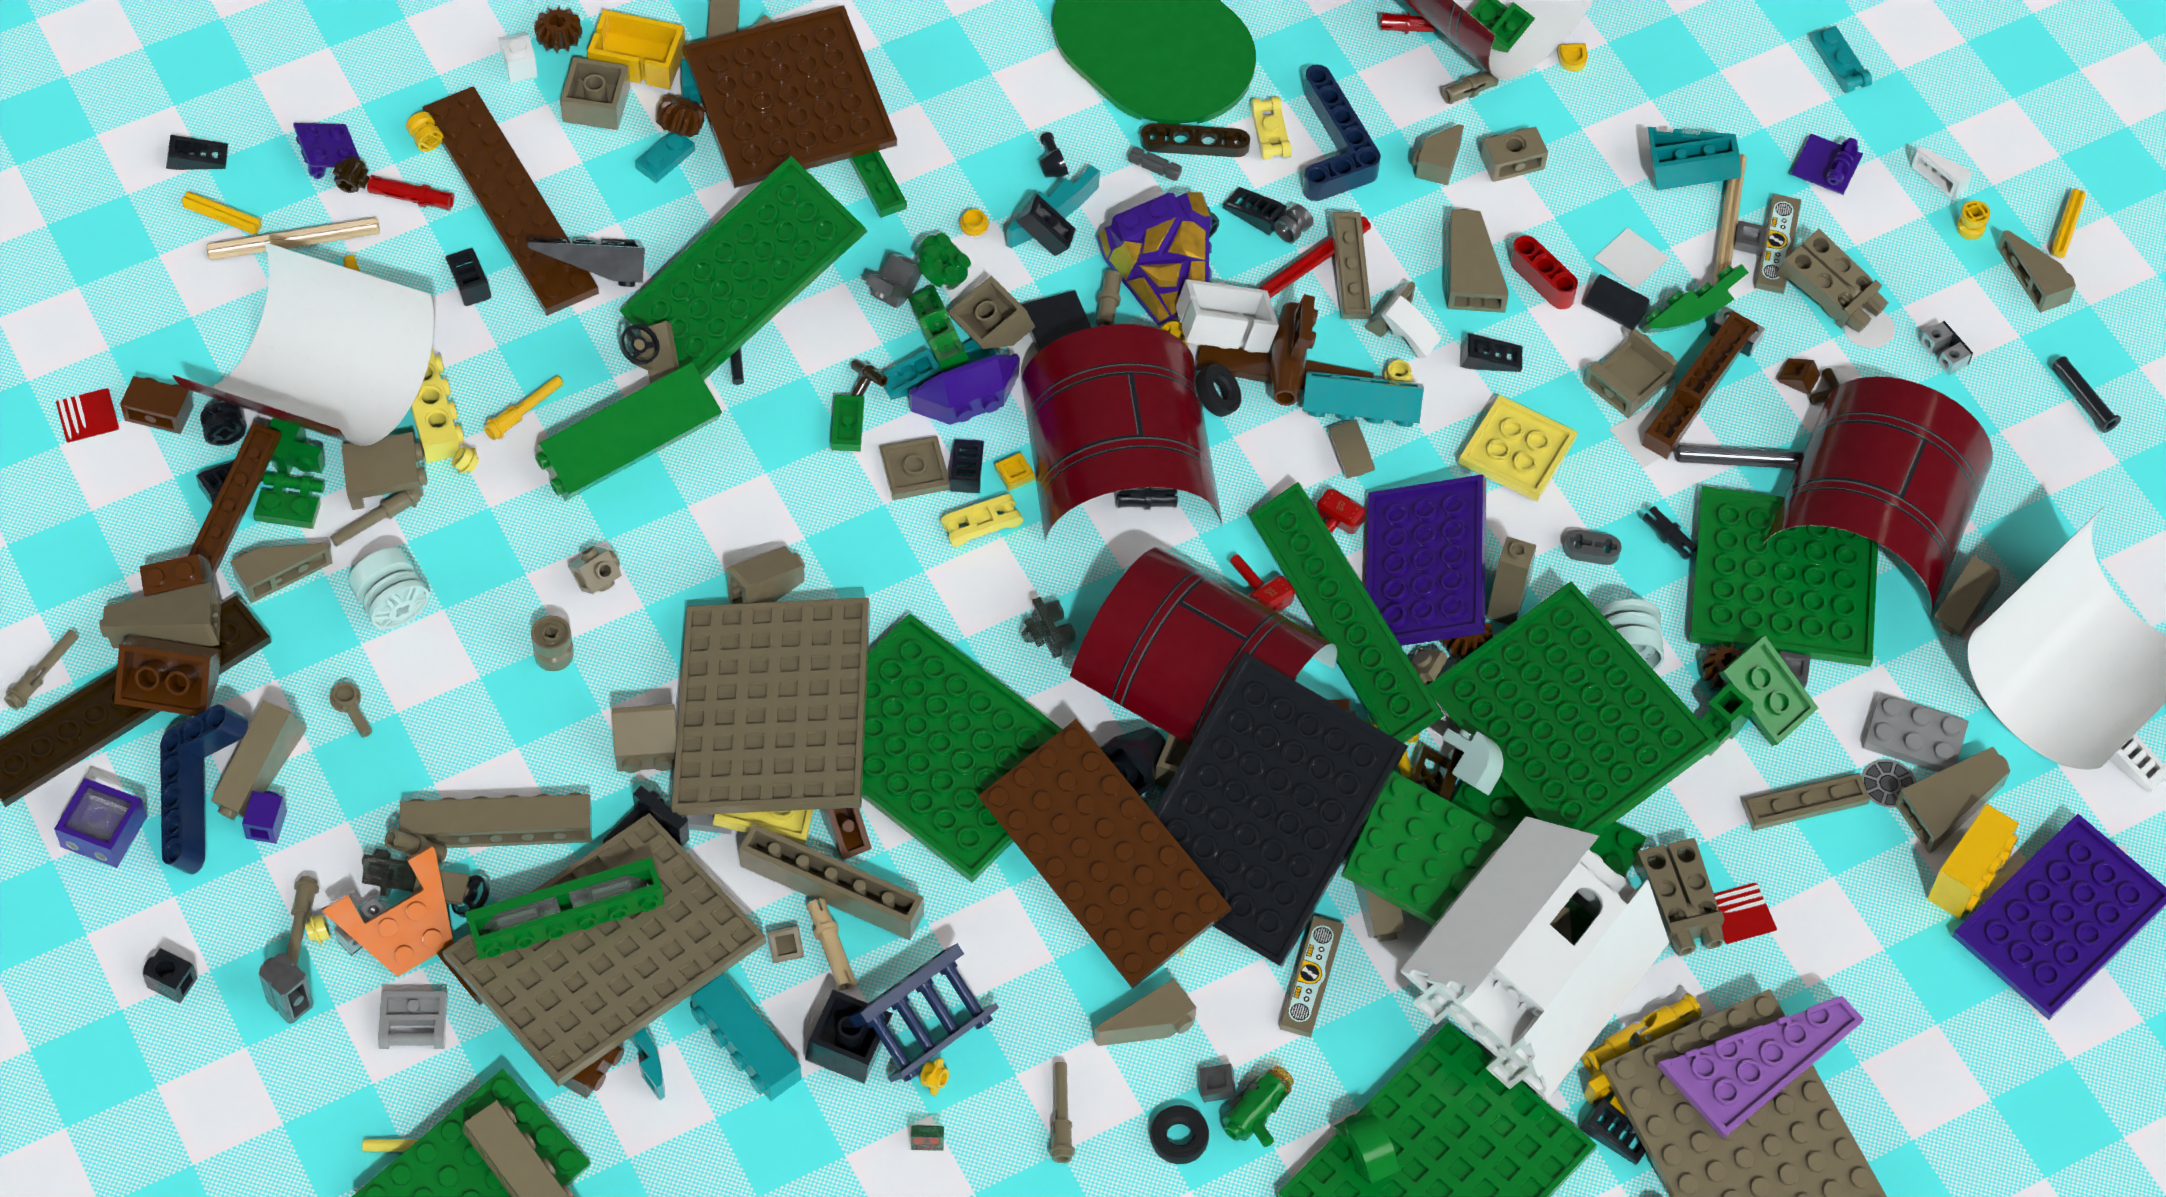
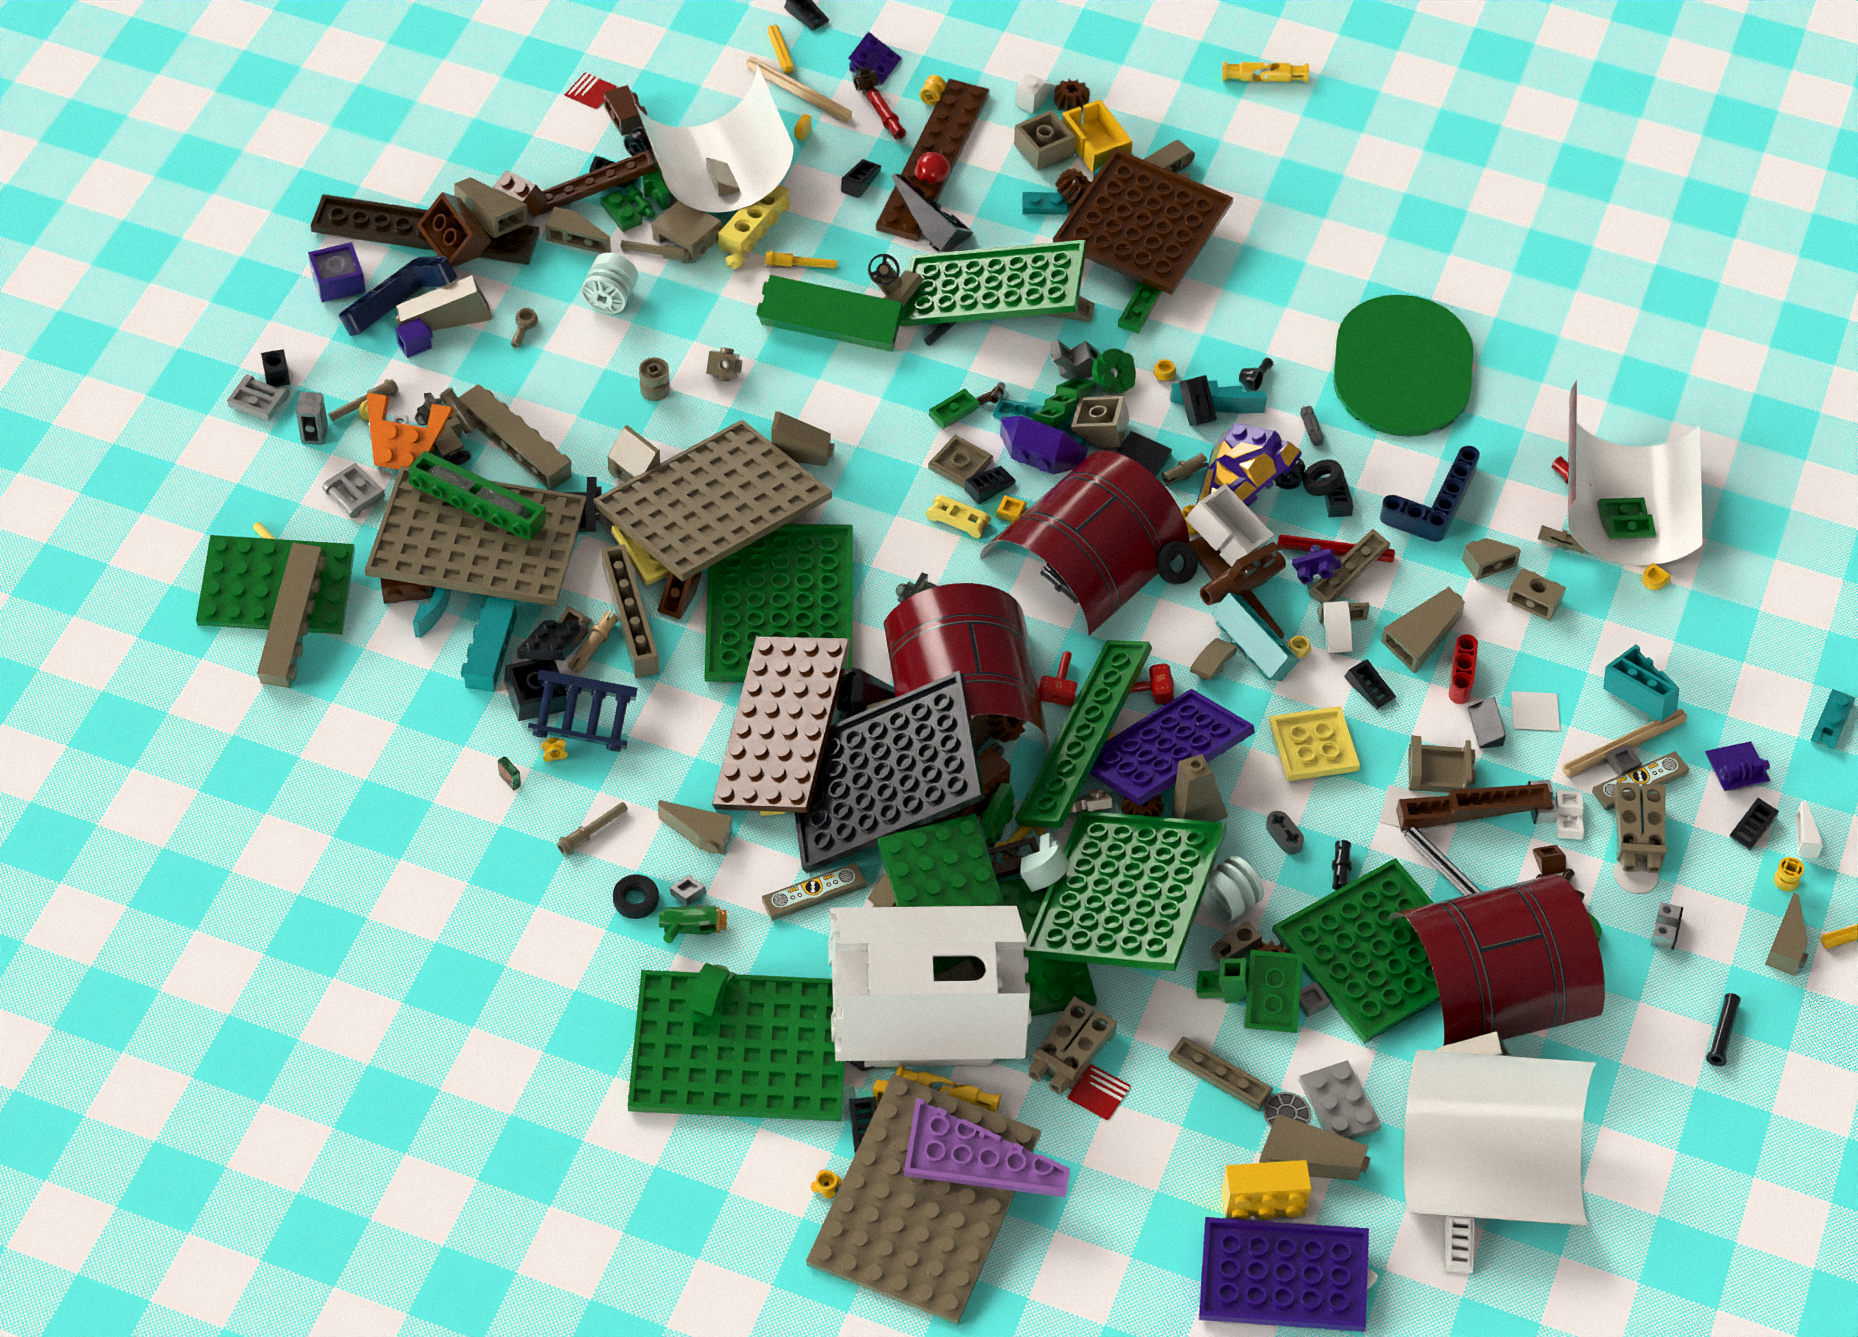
camera: 50 degrees right, 5 degrees down
(19, 694) = (387, 186): dark tan pin -> none
(193, 1028) = (255, 402): none -> light grey plate
(351, 389) = (721, 177): none -> dark tan slope
(533, 208) = (932, 167): none -> red hair
(809, 977) = (553, 640): none -> black plate
(1195, 136) = (1356, 430): dark brown beam -> none
(1246, 201) = (1326, 486): none -> black tyre
(1270, 128) = (1408, 463): light yellow plate -> none
(1296, 221) = (1347, 519): flat silver wheel -> none
(1326, 282) = (1317, 562): none -> dark purple hips
(1687, 676) = (1237, 942): none -> dark tan leg
(1689, 308) = (1522, 761): green slope -> none
(1778, 331) = (1569, 817): none -> white slope
(1883, 188) = (1765, 810): none -> black slope

